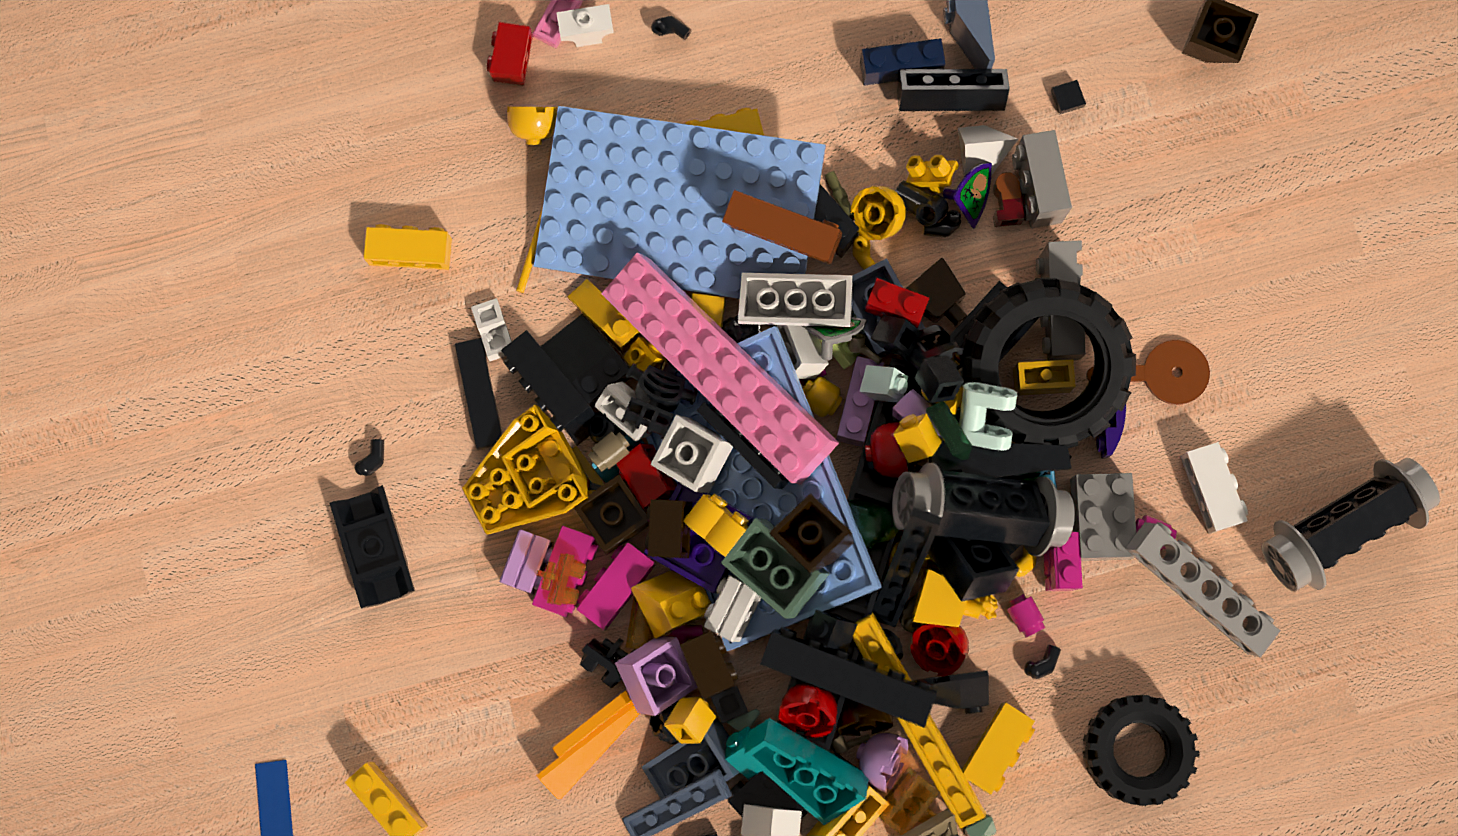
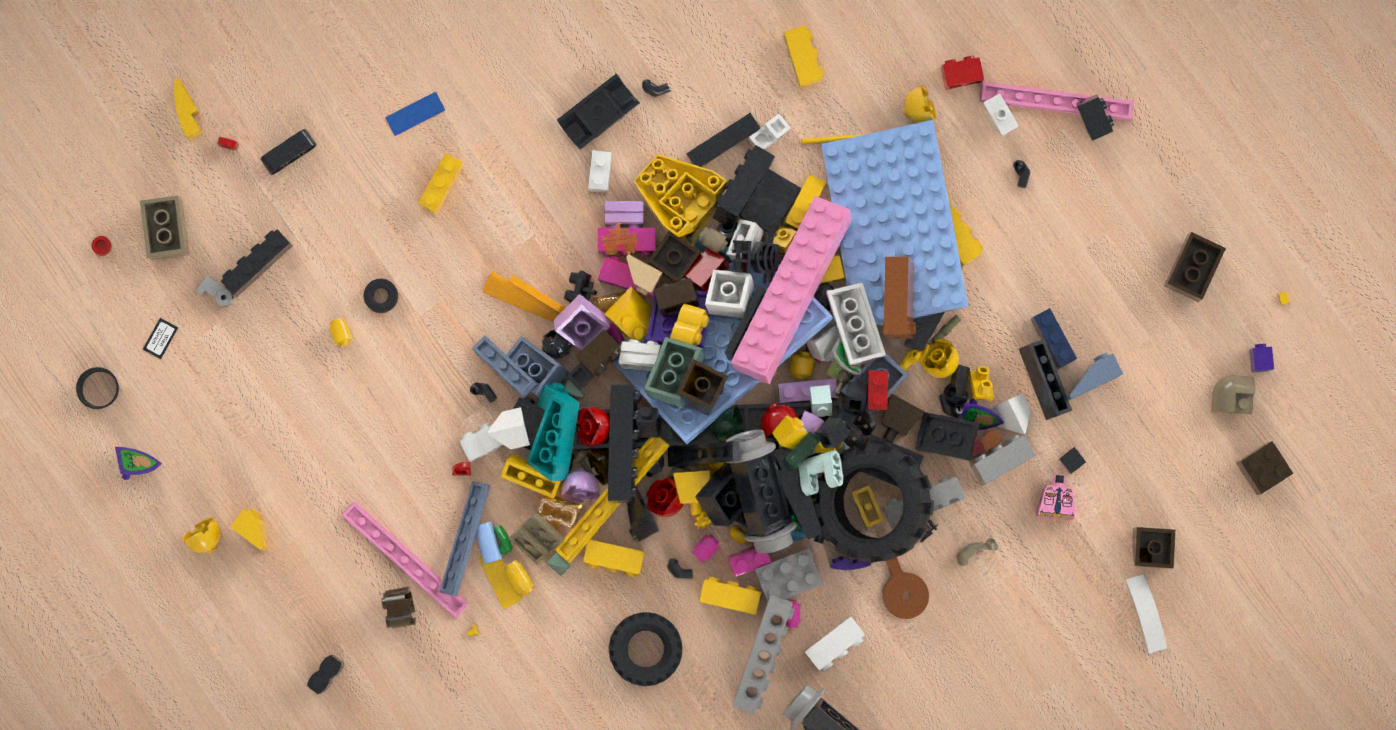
camera: 65 degrees right, 5 degrees up
(455, 573) = (600, 171): none -> white brick
(622, 564) = (643, 275): none -> tan slope
(690, 720) = (560, 354): yellow brick -> none
(985, 240) = (947, 436): none -> black plate
(1103, 606) = (730, 595): none -> yellow brick
(1116, 133) = (1057, 500): none -> torso
(1142, 263) = (973, 548): none -> dark tan arm
(1299, 72) = (1147, 613): none -> white slope

